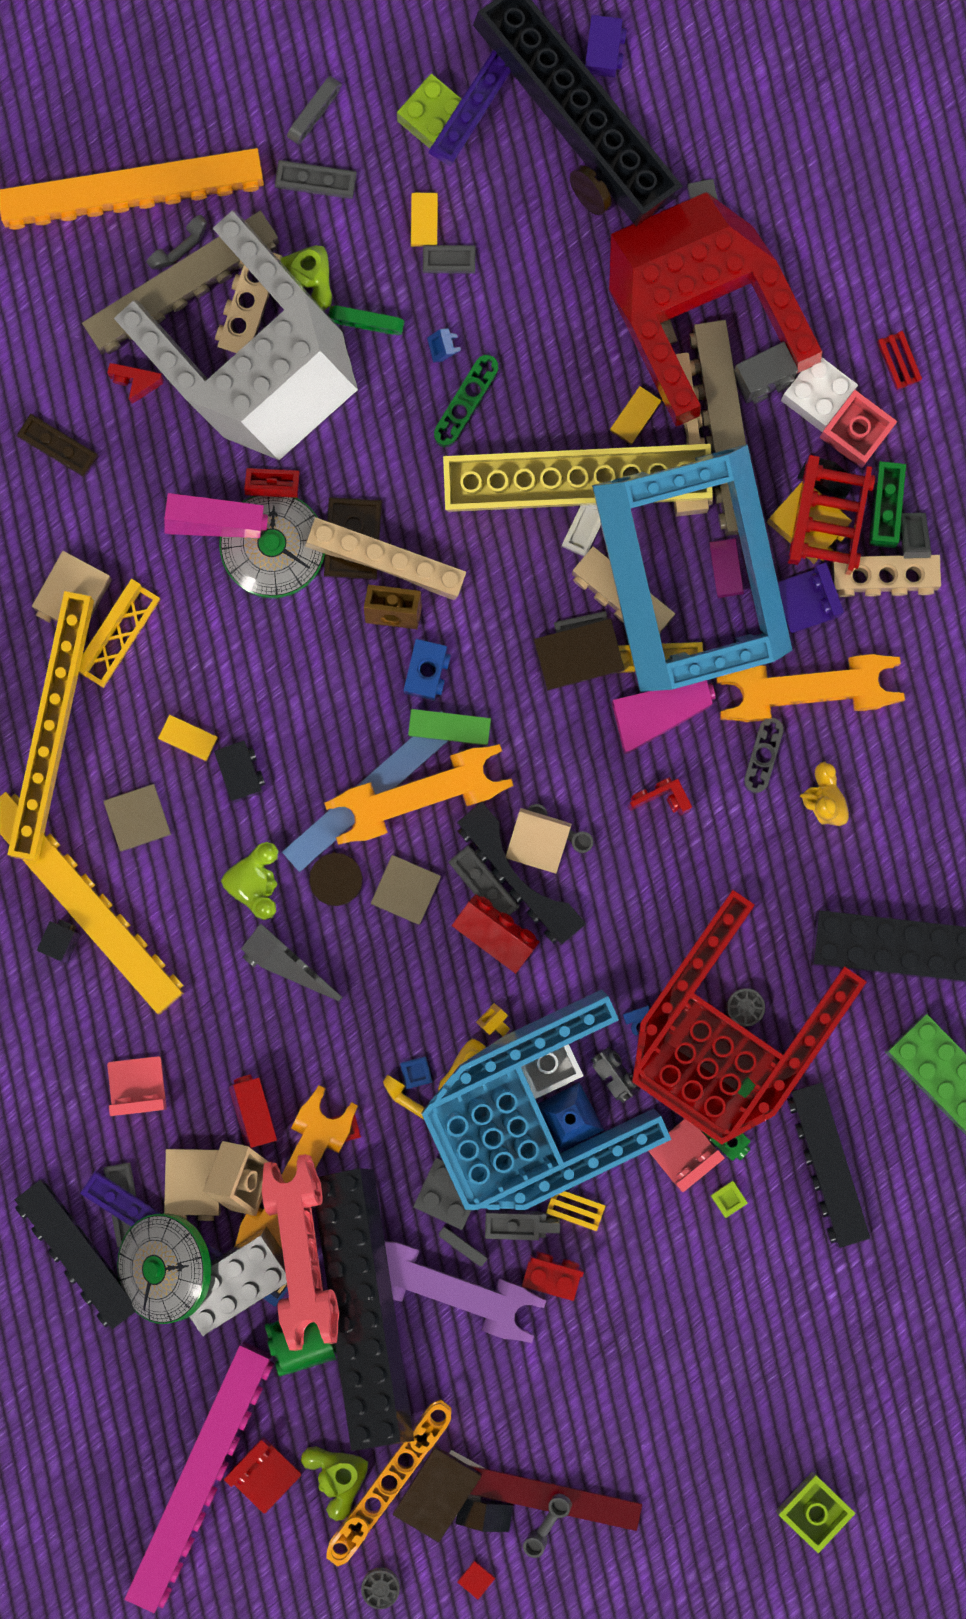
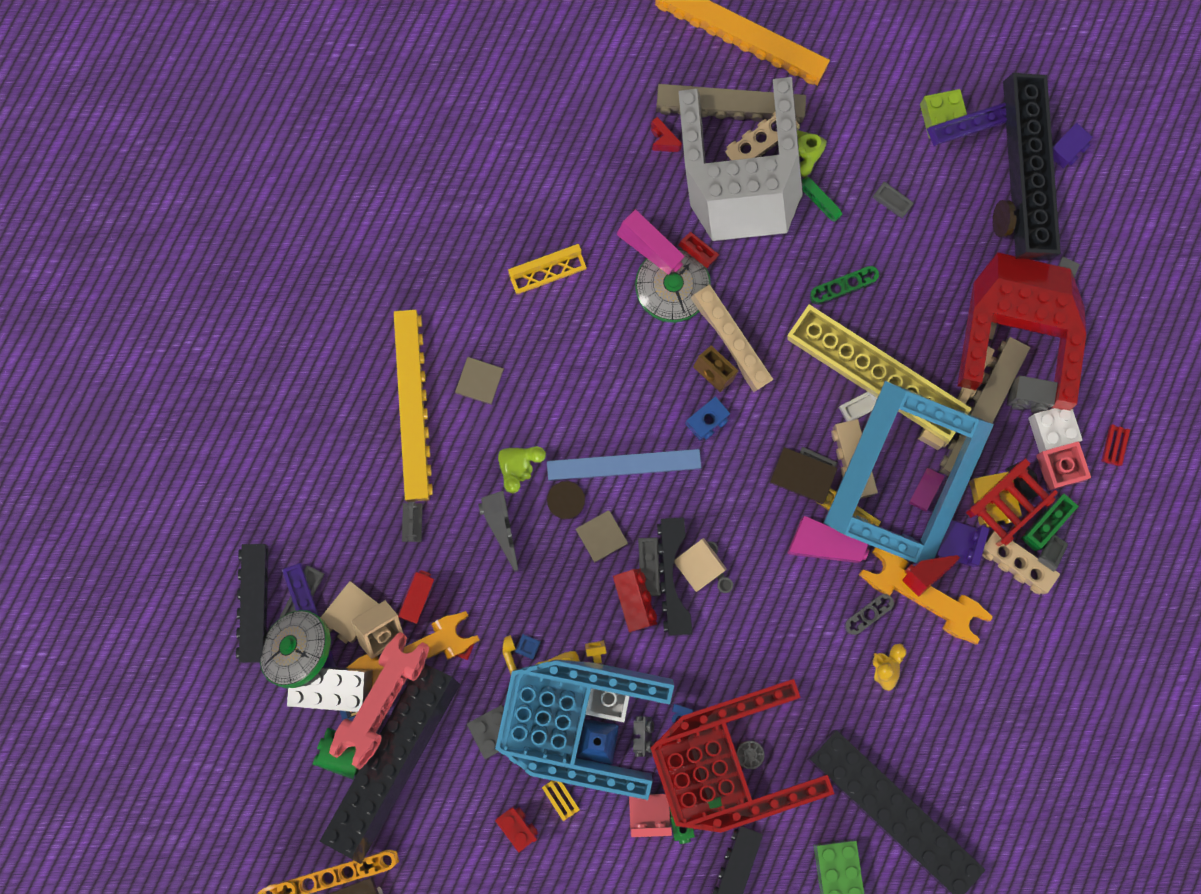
camera: 35 degrees right, 5 degrees down
(51, 726) = (469, 291): yellow brick -> none
(57, 445) = (593, 142): dark brown tile -> none
(59, 940) = (381, 415): black brick -> none
(71, 576) = (538, 228): tan brick -> none
(136, 1086) = (361, 532): coral bracket -> none
(161, 260) = (762, 80): dark grey bar -> none
(183, 1032) = (412, 522): none -> dark grey hinge
(188, 738) = (542, 357): yellow tile -> none
(197, 1479) = (216, 790): dark pink brick -> none
(239, 772) = (557, 397): black brick -> none
(263, 1475) = (259, 816): red bracket -> none
(314, 110) = (877, 63): dark grey beam -> none
(315, 179) = (849, 102): dark grey tile -> none
(340, 1477) = (302, 852): lime head -> none
(359, 516) = (736, 306): dark brown tile -> none
(424, 219) = (895, 167): yellow tile -> none
(441, 345) = (853, 244): blue tile -> none
(449, 727) = (697, 461): bright green tile -> none
(462, 1246) = (477, 768): dark grey tile -> none
(464, 779) = (684, 496): light orange piece -> none
(496, 1306) = (470, 820): medium lavender piece -> none
(519, 1224) = (520, 782): dark grey hinge -> none
(635, 415) = (936, 364): yellow tile -> none
(676, 800) = (800, 601): red bracket -> none
(728, 1199) = (655, 862): lime plate -> none
(793, 662) = (927, 572): none -> red slope

